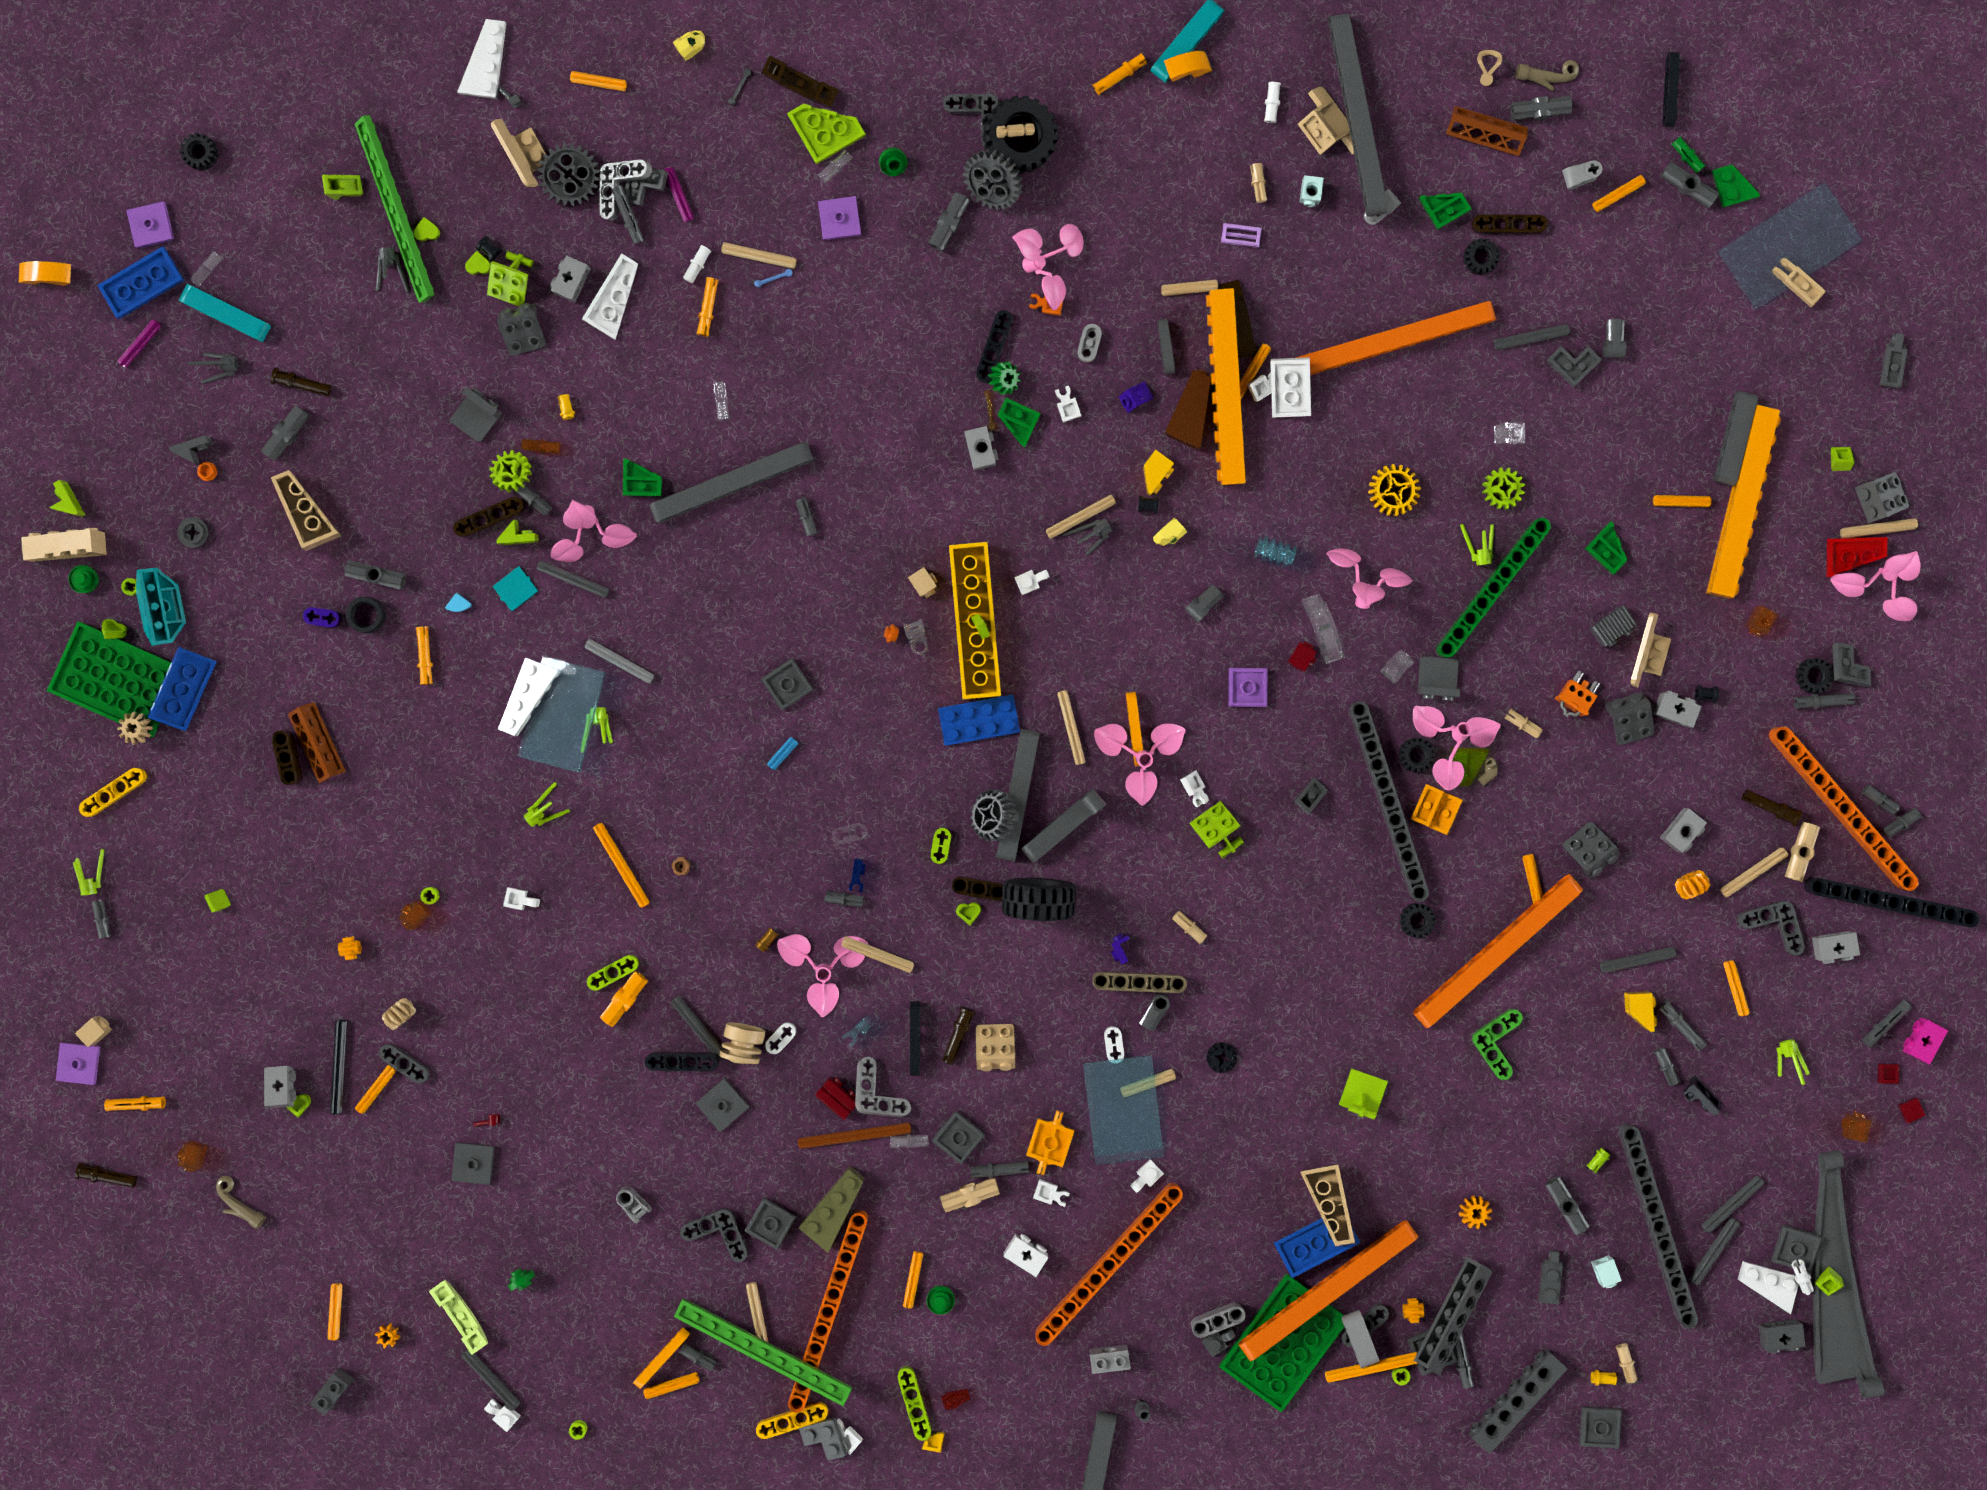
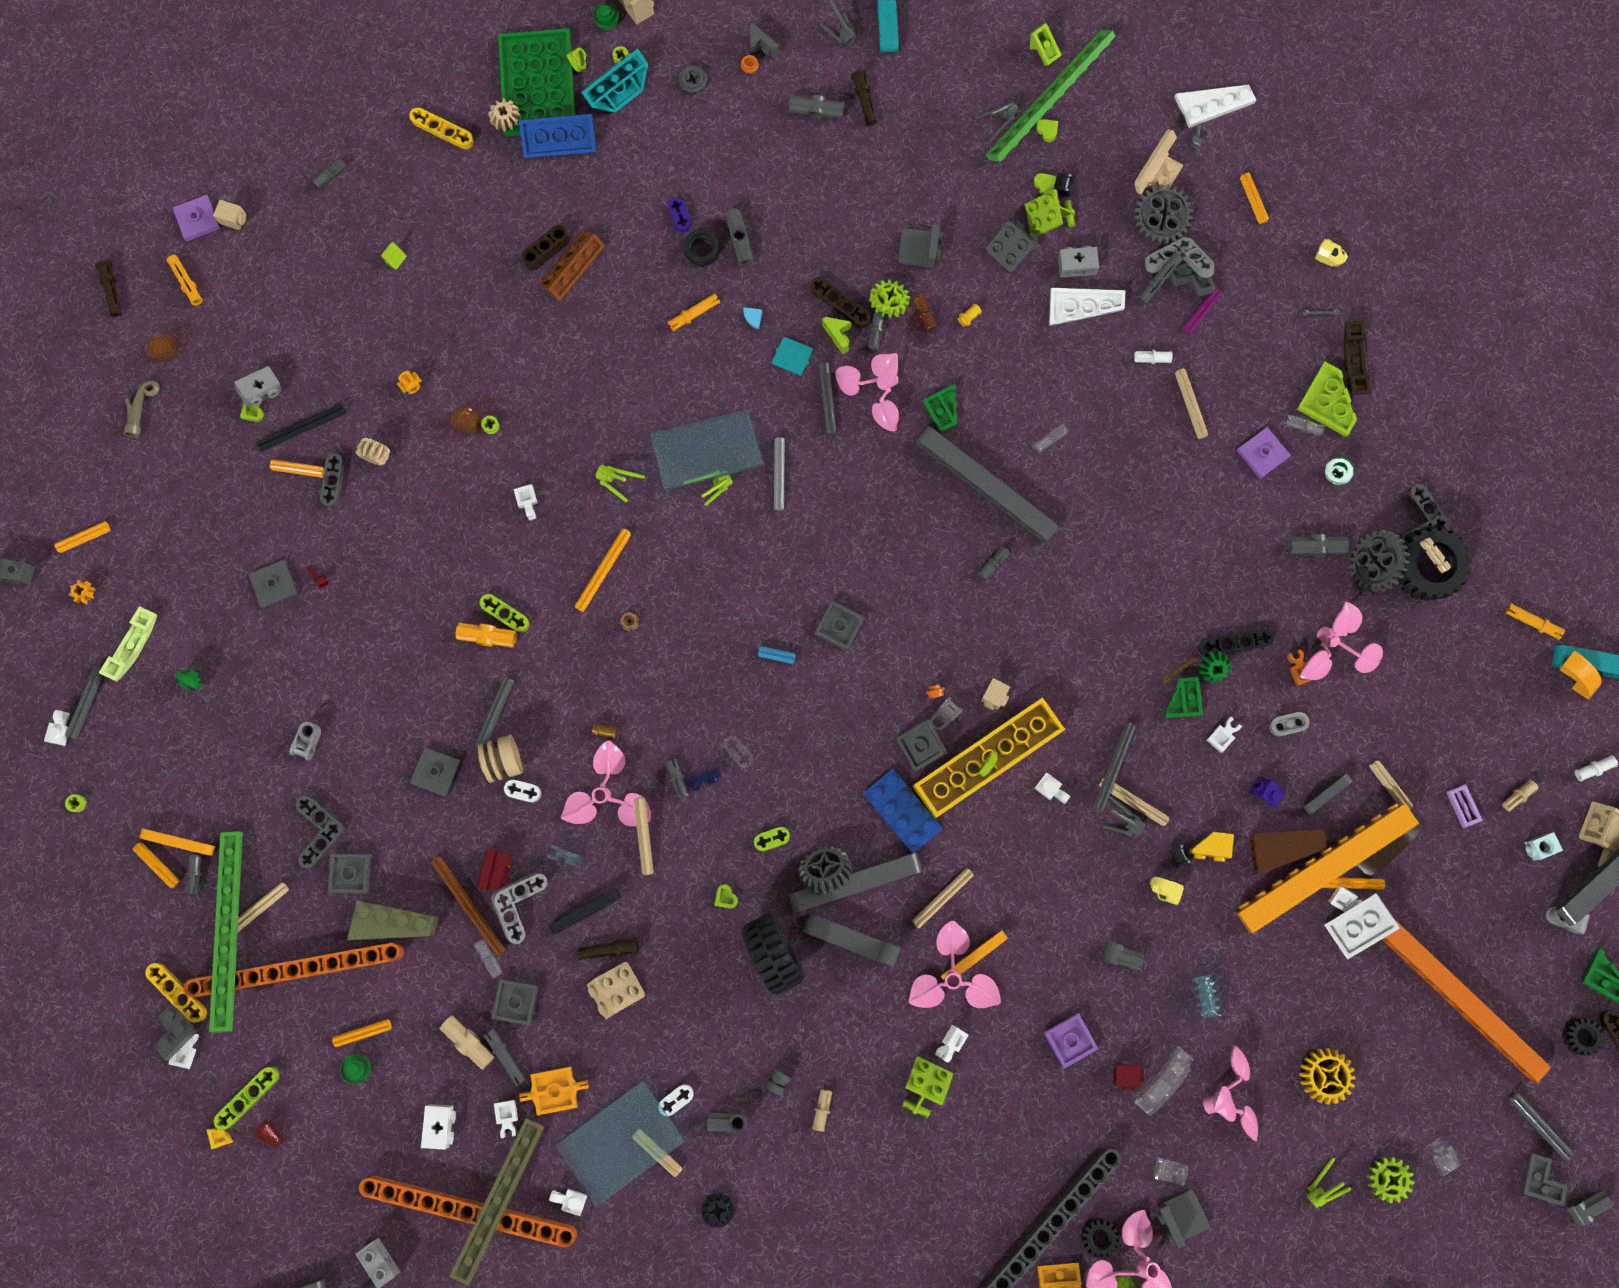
camera: 65 degrees right, 10 degrees down
(88, 886) = (351, 147): lime plant -> none
(304, 514) = (757, 156): tan wedge -> none
(528, 690) = (714, 411): white wing -> none
(682, 1064) = (454, 716): black beam -> none
(707, 307) = (1115, 387): light orange pin -> none
(788, 273) = (1191, 436): medium blue hinge -> none
(931, 672) = (921, 745): none -> dark grey plate
(969, 889) = (748, 885): dark brown beam -> none
(974, 438) = (1150, 672): light grey brick -> none
(1042, 516) = (1114, 767): none -> dark grey axle
(1114, 1235) = (497, 1202): none -> olive plate
(1118, 952) = (762, 1056): dark purple bracket -> none
(1143, 948) = (780, 1078): none -> dark grey wheel
(1148, 986) = (746, 1102): dark tan beam -> none
(1310, 796) = (1006, 1157): dark grey slope -> none
(1501, 583) = (1304, 1226): green beam -> none

